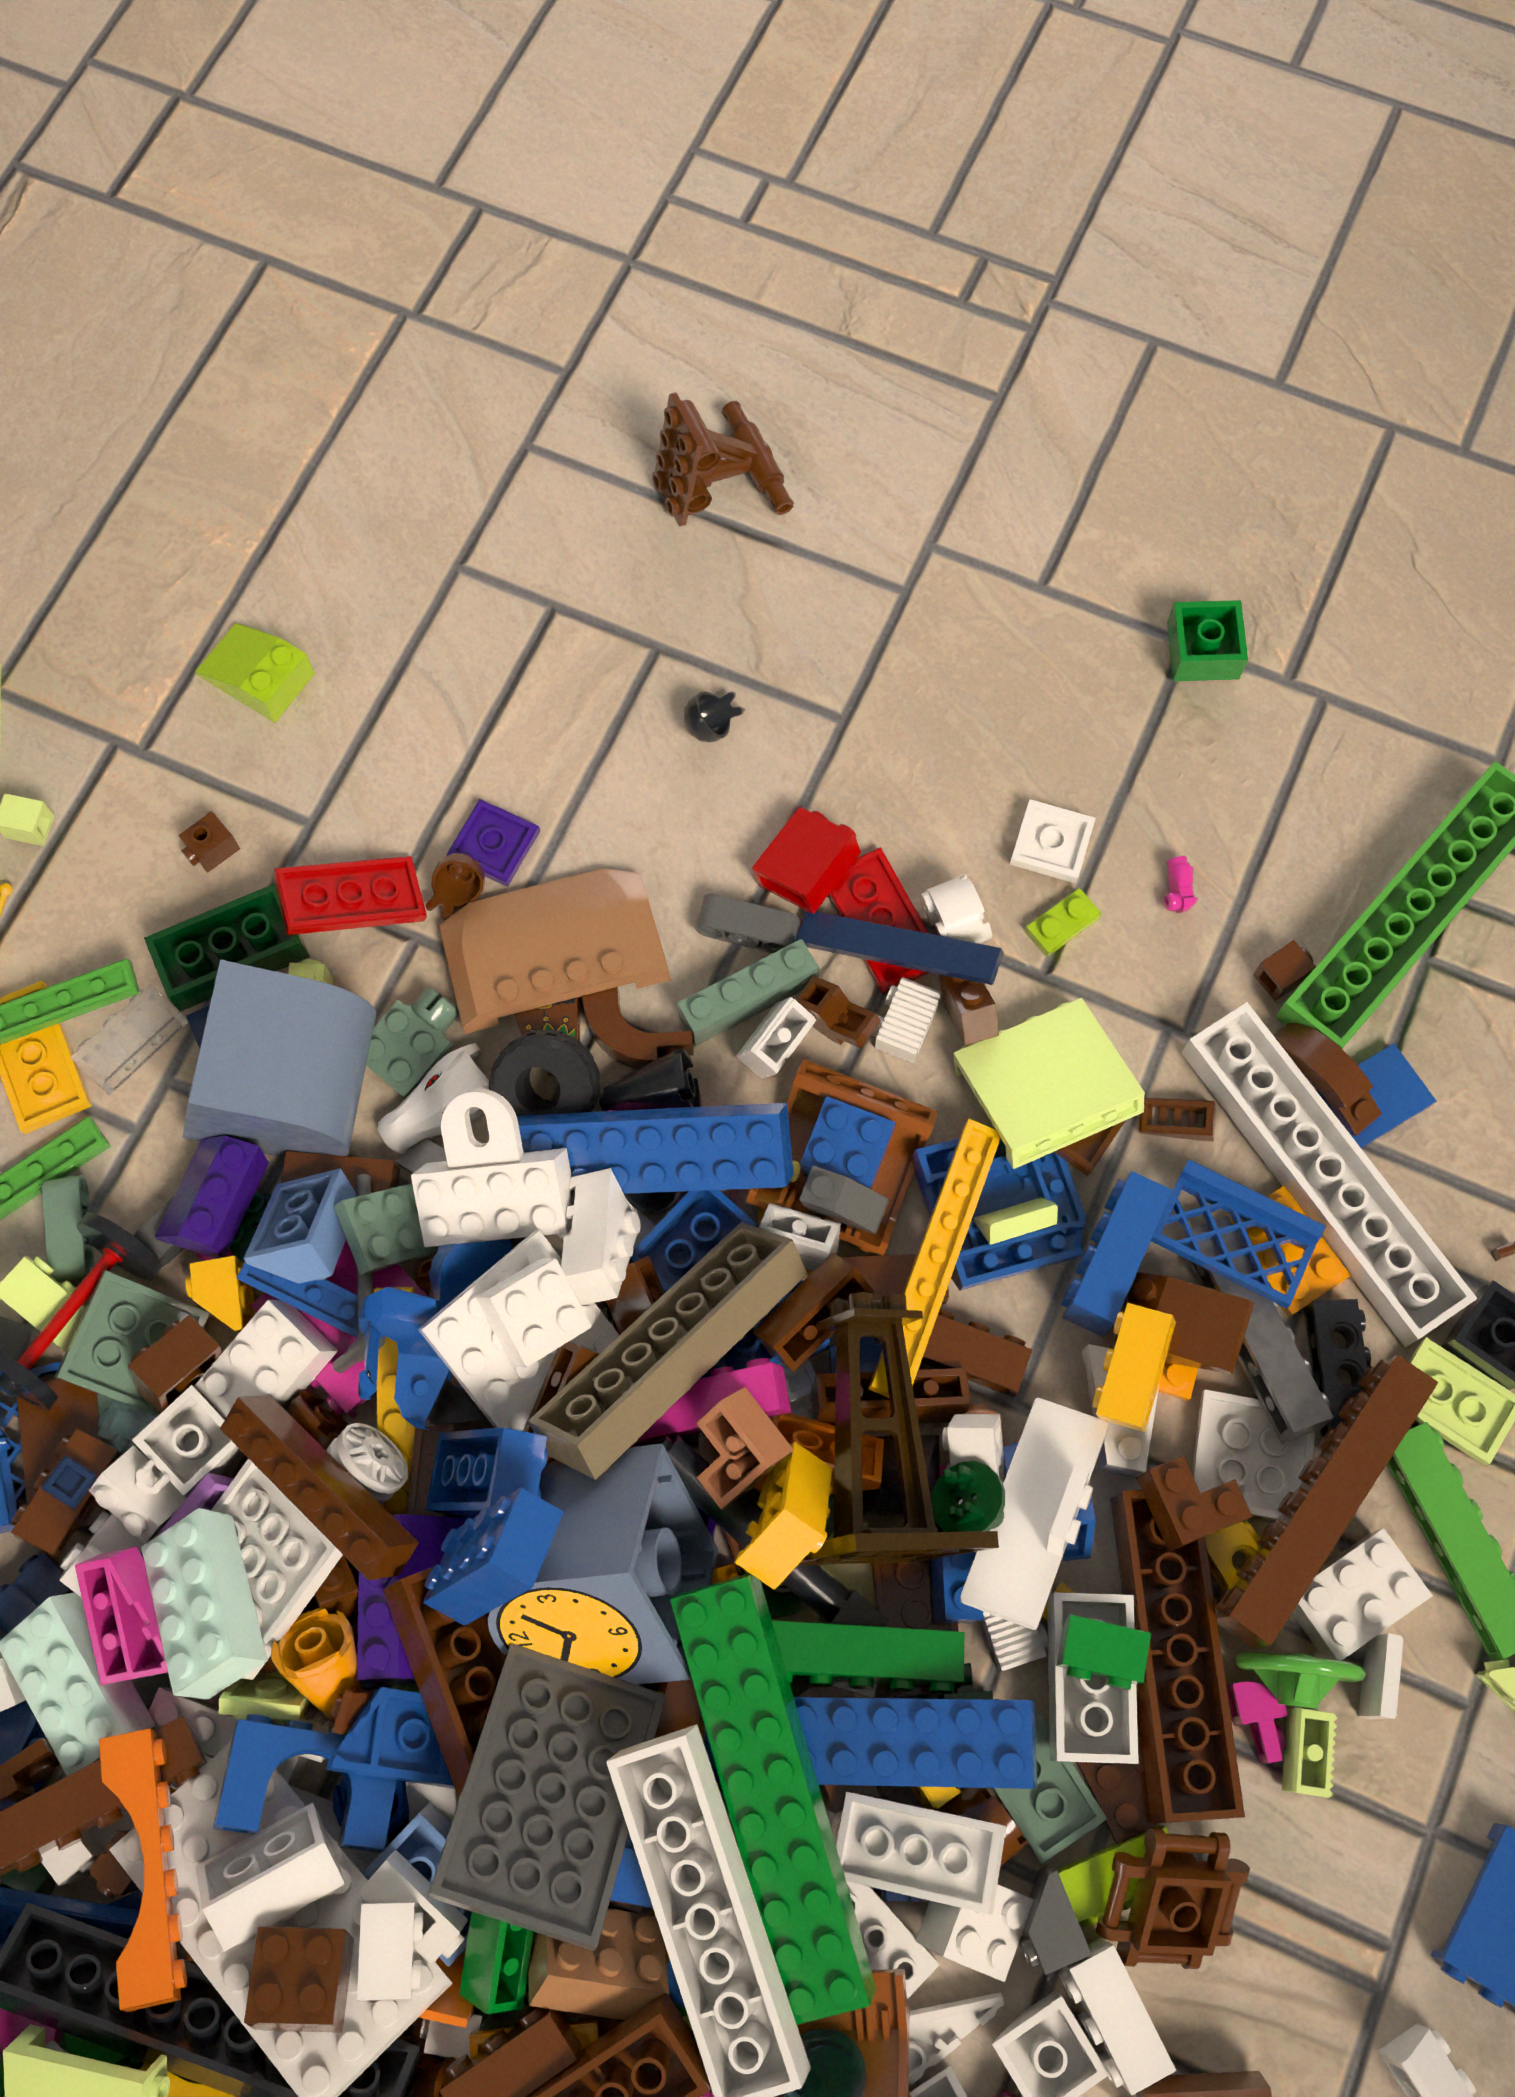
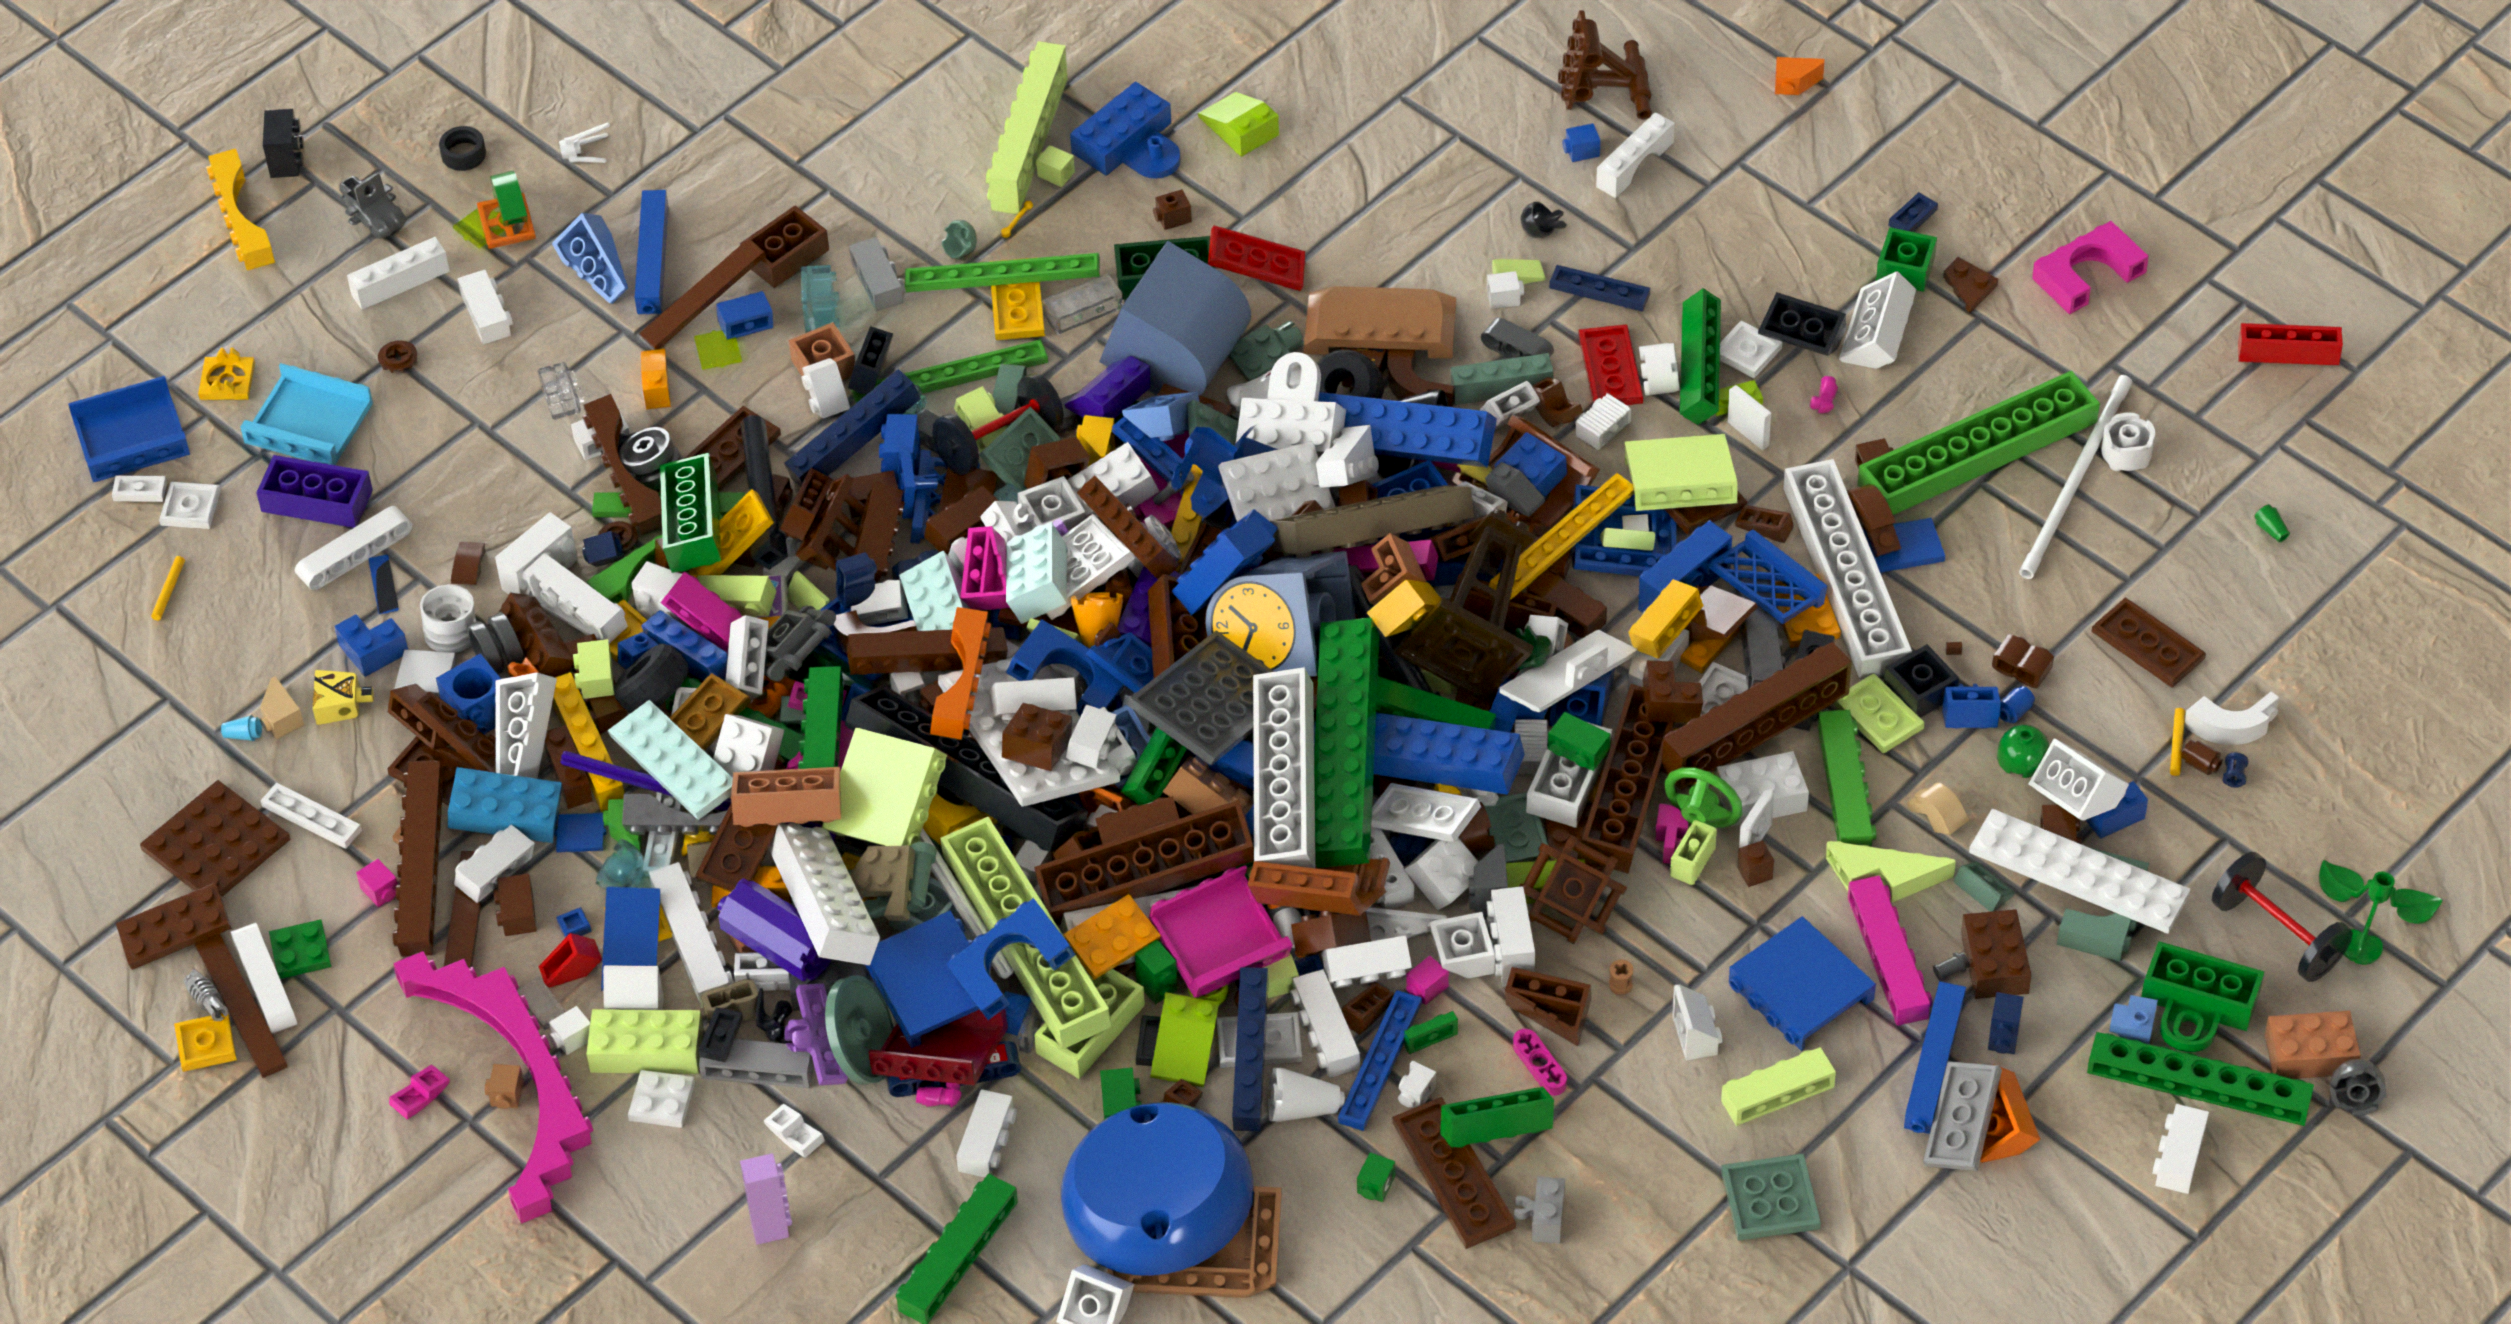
camera: 20 degrees right, 20 degrees down
(69, 1482) = (970, 508): dark blue tile -> none
(110, 736) = (1129, 134): none -> blue brick
(455, 882) = (1329, 270): reddish brown piece -> none
(495, 841) = (1363, 258): dark purple tile -> none
(533, 1312) = (1292, 475): white brick -> none
(700, 842) = (1504, 290): none -> white brick
(706, 804) = (1527, 270): none -> yellowish green slope
(721, 576) = (1582, 142): none -> blue brick
(791, 585) = (1618, 168): none -> white arch
(806, 859) = (1571, 315): red brick -> none
(829, 798) = (1599, 288): none -> dark blue plate
(901, 947) = (1612, 373): dark blue tile -> none
(955, 394) = (1797, 74): none -> orange slope
(969, 1008) = (1646, 416): reddish brown brick -> none
(1001, 877) = (1700, 356): none -> green brick
(1014, 1186) = (1636, 522): none -> white tile
(1105, 960) = (1749, 417): none -> white tile
(1117, 788) = (1804, 324): none -> black slope
(1182, 564) = (1913, 213): none -> dark blue plate
(1204, 748) = (1878, 322): none -> white slope
(1288, 2031) = (1621, 974): none -> medium nougat bush
(1290, 648) = (1969, 282): none -> reddish brown wing
(1399, 1738) = (1755, 863): none -> reddish brown brick
(1442, 543) = (2103, 244): none -> dark pink arch

